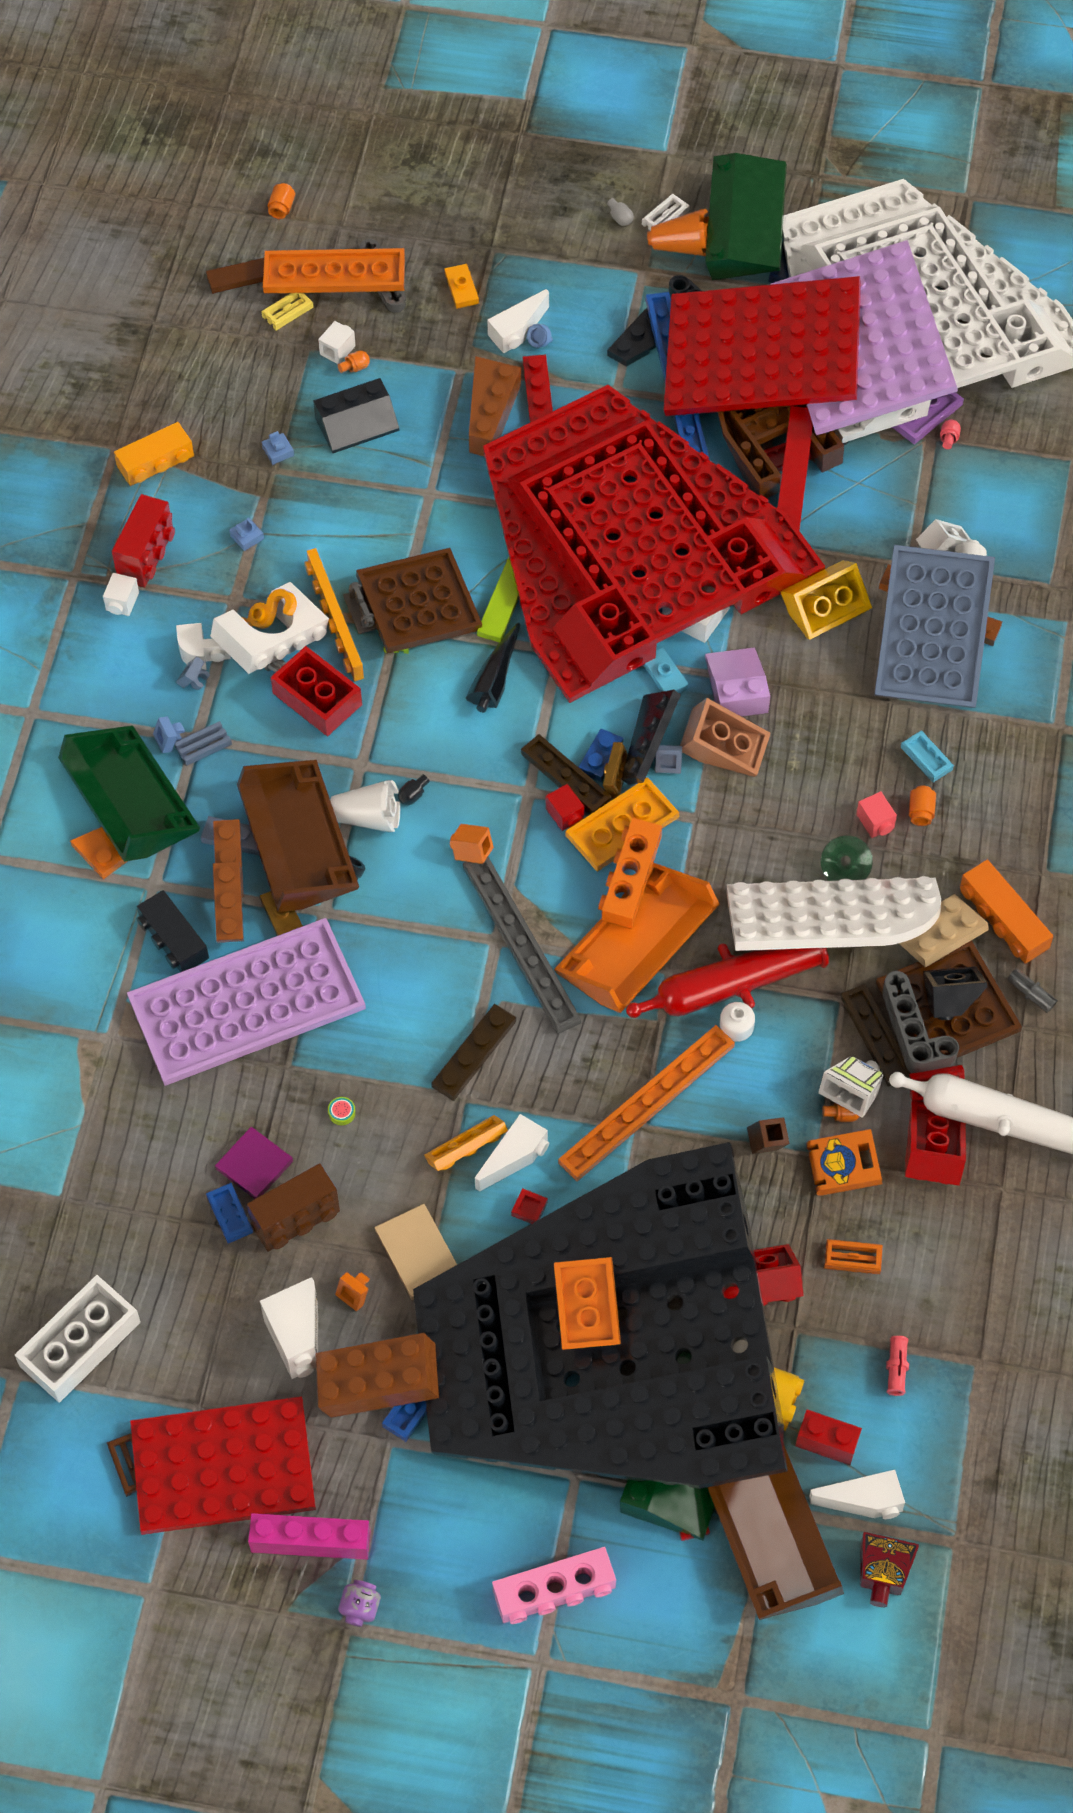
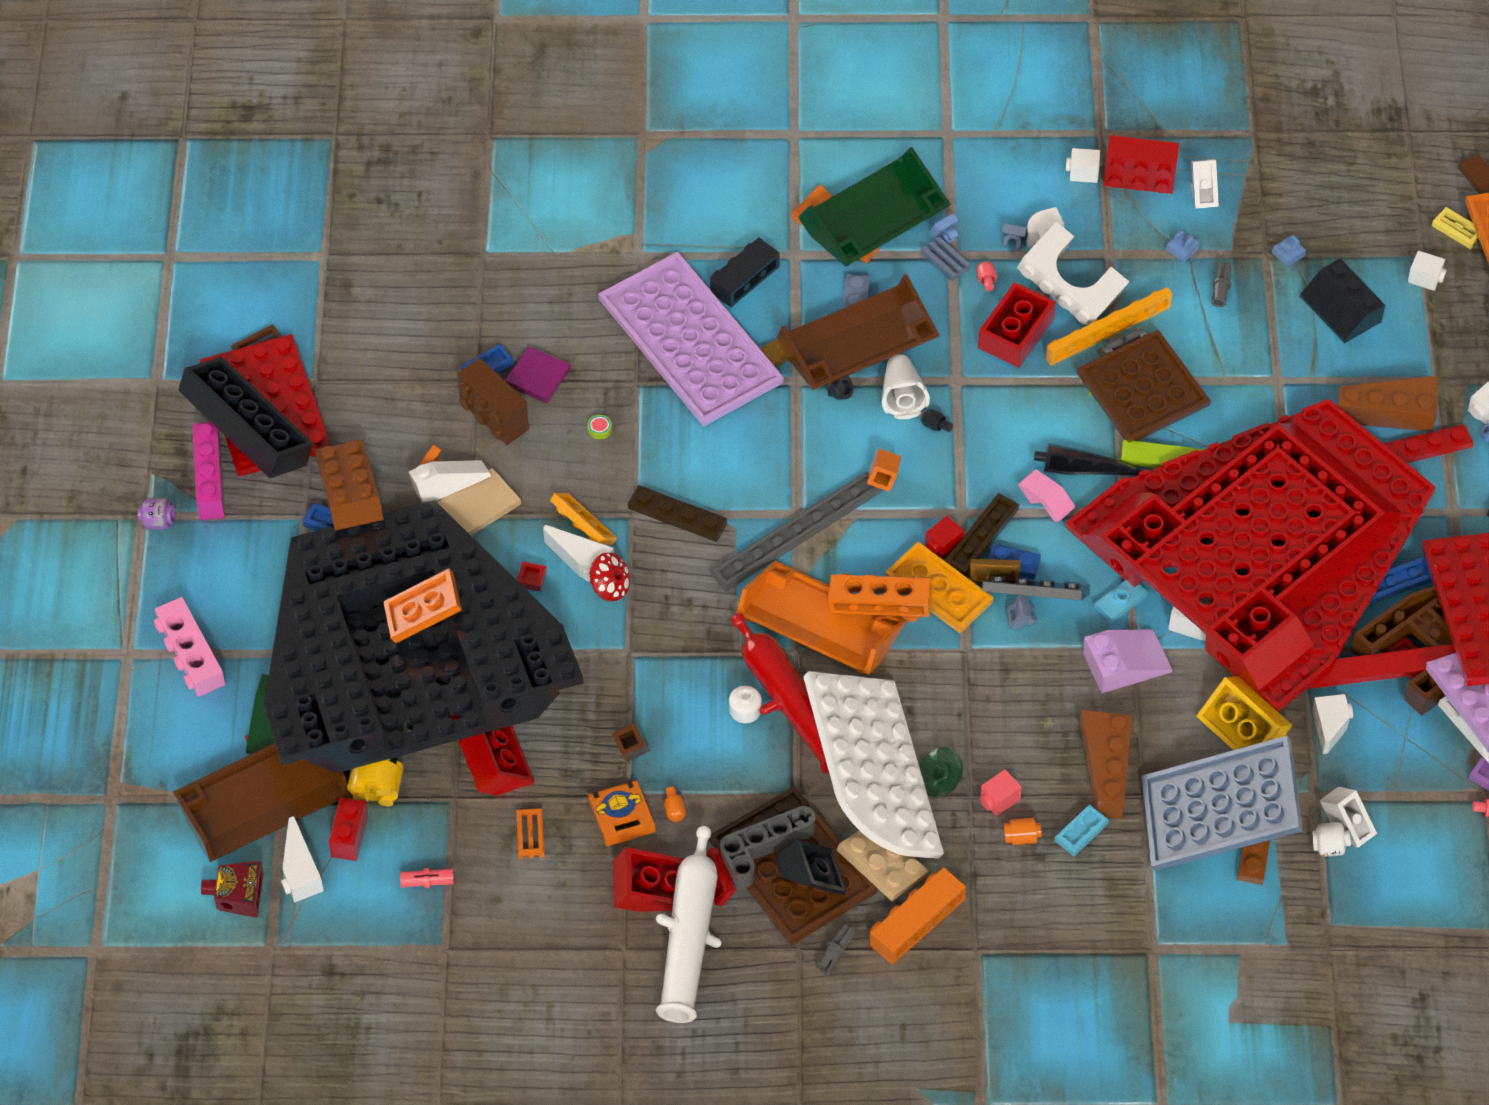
camera: 80 degrees right, 5 degrees down
(77, 1338) = (353, 282): white brick -> none
(154, 454) = (1248, 157): light orange brick -> none
(181, 497) = (1204, 183): none -> white slope
(228, 881) = (799, 295): dark orange bracket -> none
(236, 709) = (987, 275): none -> coral cylinder
(262, 1475) = (245, 417): none -> black brick
(263, 615) = (1088, 269): light orange piece -> none
(294, 1326) = (385, 422): white slope -> none
(306, 510) = (1221, 284): none -> dark grey axle
(355, 362) = (1410, 290): orange cylinder -> none
(383, 1273) = (444, 478): none -> white slope
(528, 708) = (1052, 496): none -> bright pink slope
(552, 1124) = (609, 577): none -> red dish
(646, 1103) = (650, 648): orange plate -> none
(724, 739) = (1053, 656): nougat slope -> none
(841, 531) = (1331, 719): none -> white slope
(852, 1084) = (697, 804): white torso -> none
(856, 717) = (1107, 754): none -> dark orange wedge

